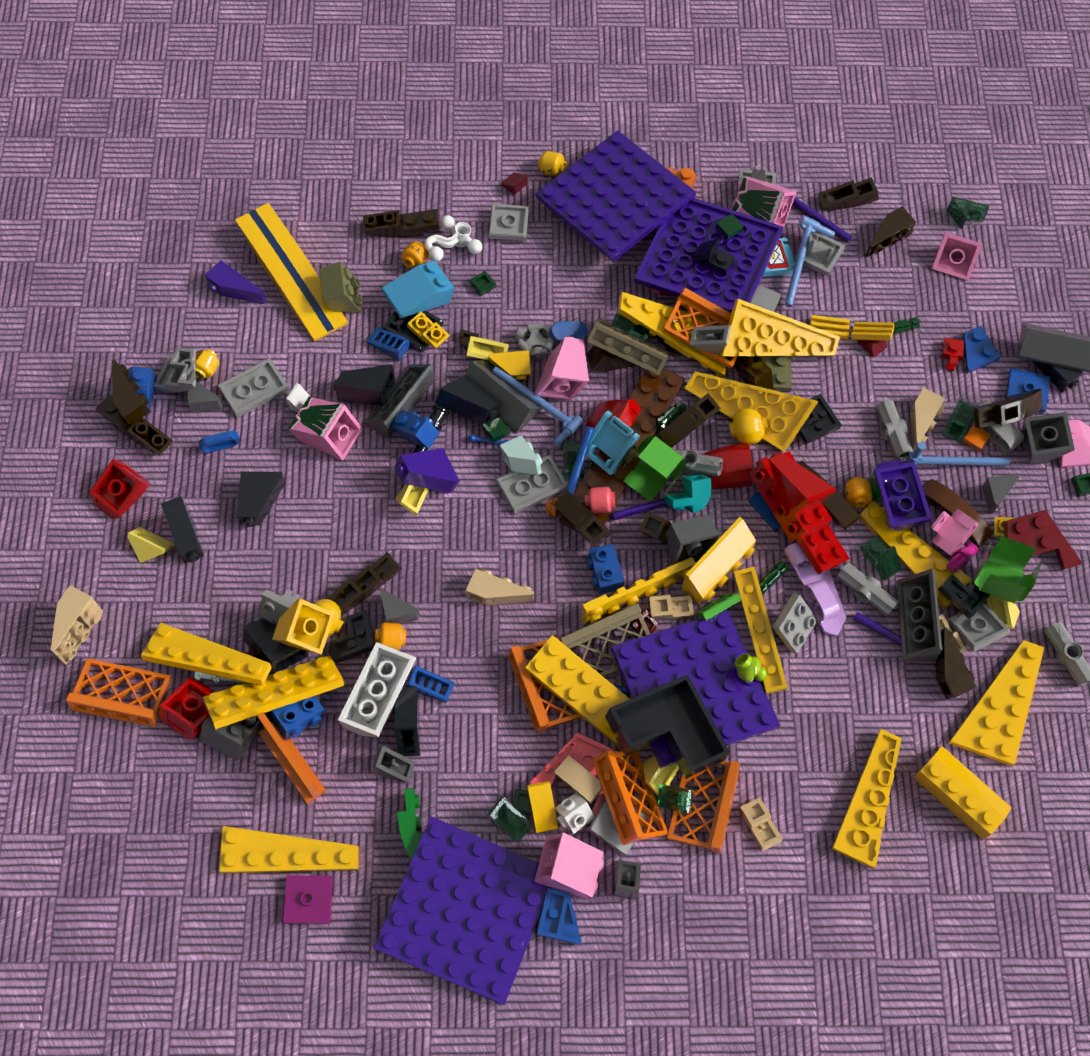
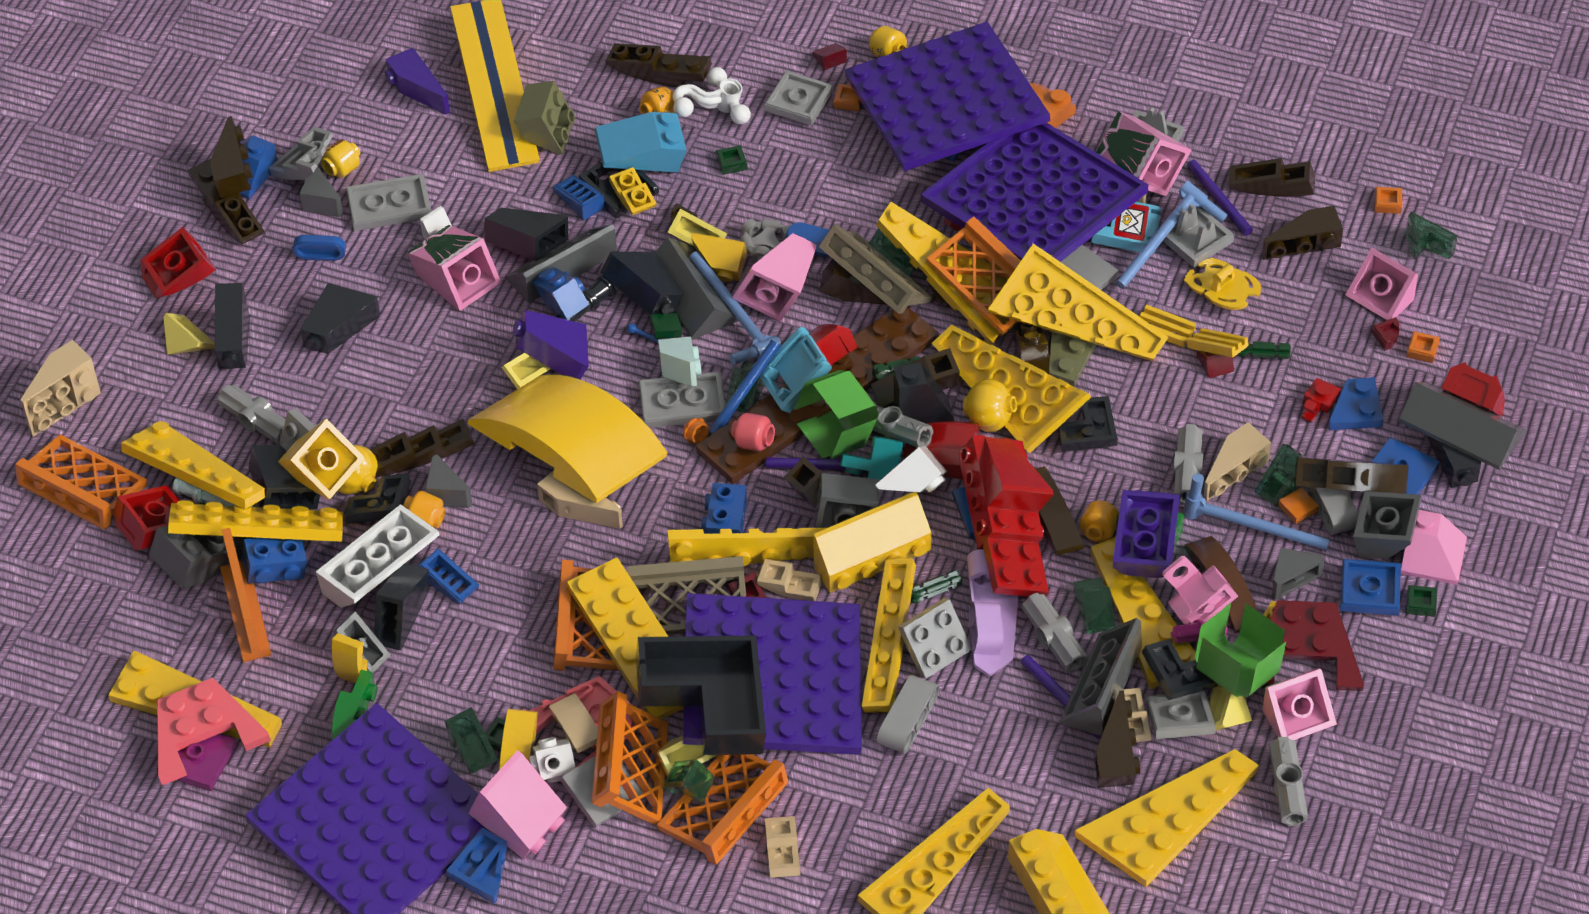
camera: 25 degrees right, 15 degrees down
(230, 594) = (252, 412): none -> light grey piece
(296, 870) = (196, 716): none -> coral wing
(392, 783) = (347, 657): none -> yellow slope
(470, 539) = (575, 429): none -> yellow slope
(540, 212) = (846, 98): none -> orange tile
(582, 519) = (719, 448): dark brown slope -> none
(627, 879) = (582, 853): dark grey slope -> none
(699, 436) = (920, 395): none -> black slope
(710, 338) = (981, 285): light grey slope -> none
(711, 256) = (1034, 195): black slope -> none
(718, 606) = (850, 594): bright green tile -> none
(729, 226) = (1075, 165): dark green tile -> none
(732, 504) = (915, 473): none -> white slope
(750, 668) = (847, 662): lime animal -> none
(800, 687) = (908, 714): none -> light grey beam
(854, 284) = (1224, 285): none -> yellow shield
(926, 190) = (1388, 200): none -> orange tile
(971, 289) = (1386, 333): none -> dark red tile
(998, 293) = (1423, 347): none -> orange tile
(1051, 485) = (1370, 587): none -> blue plate
(1051, 595) = (1299, 705): none -> bright pink slope
(1058, 318) = (1475, 388): none -> red slope

